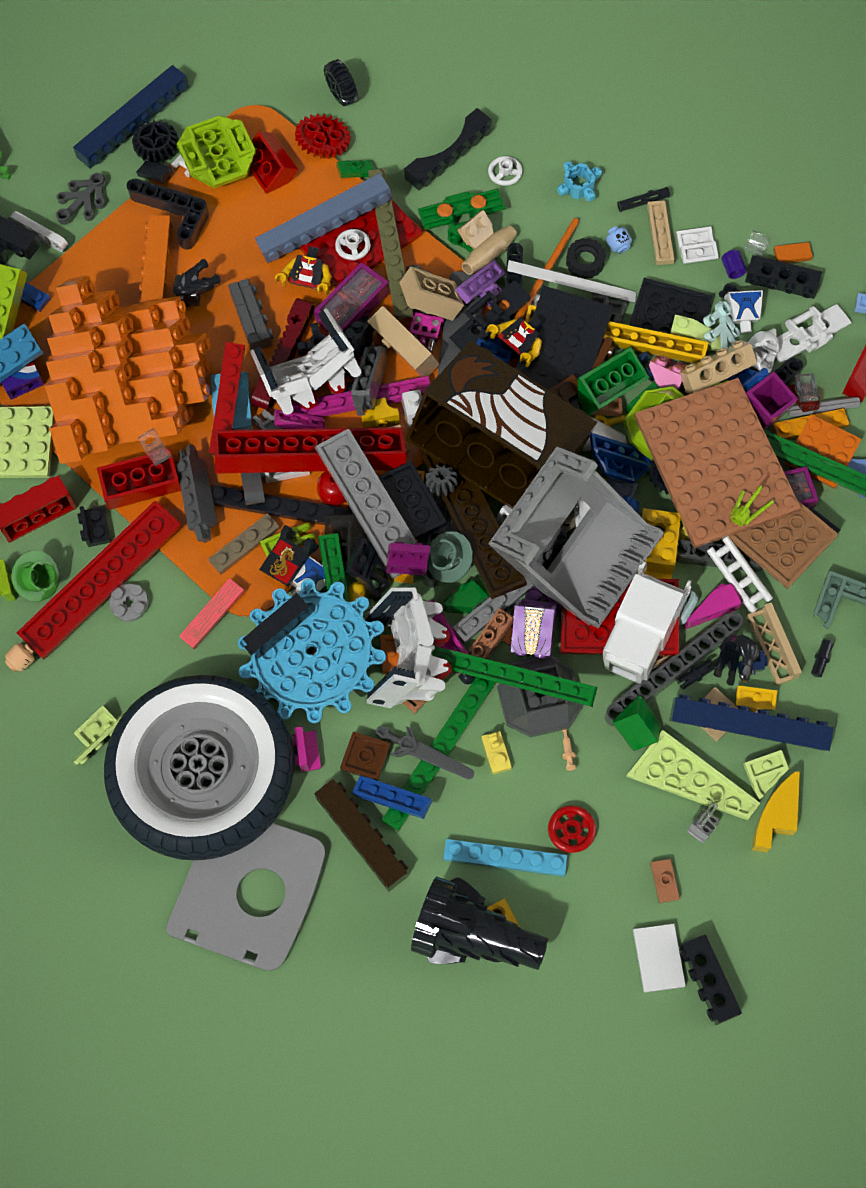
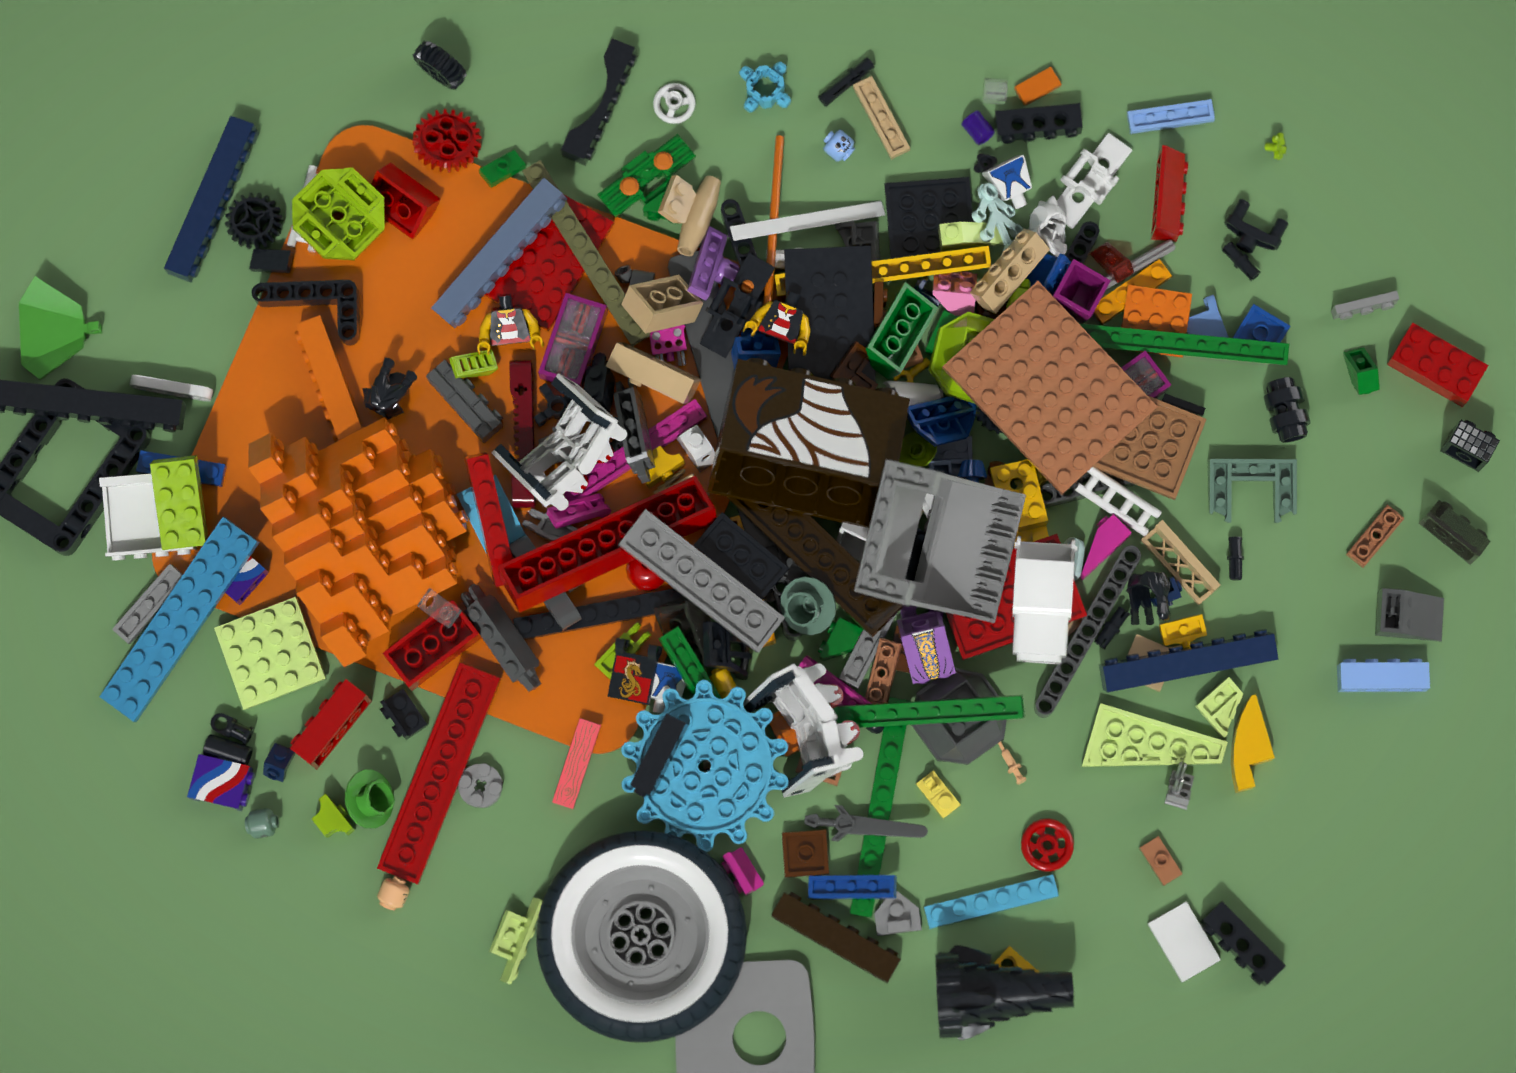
camera: 20 degrees left, 10 degrees up
(82, 196) = (201, 324): dark grey plant -> none
(243, 544) = (576, 672): dark tan plate -> none
(279, 292) = (486, 362): none -> lime slope
(355, 236) = (543, 263): white piece -> none
(407, 558) = (767, 628): magenta brick -> none
(420, 838) = (897, 916): none -> light grey plate
(441, 480) = (760, 529): dark grey gear -> none
(590, 246) = (809, 198): black tyre -> none
(638, 725) = (1074, 708): green slope -> none
(696, 245) = (927, 117): white slope -> none
(741, 515) = (1099, 443): lime plant -> none
(806, 387) = (1112, 255): clear slope -> none

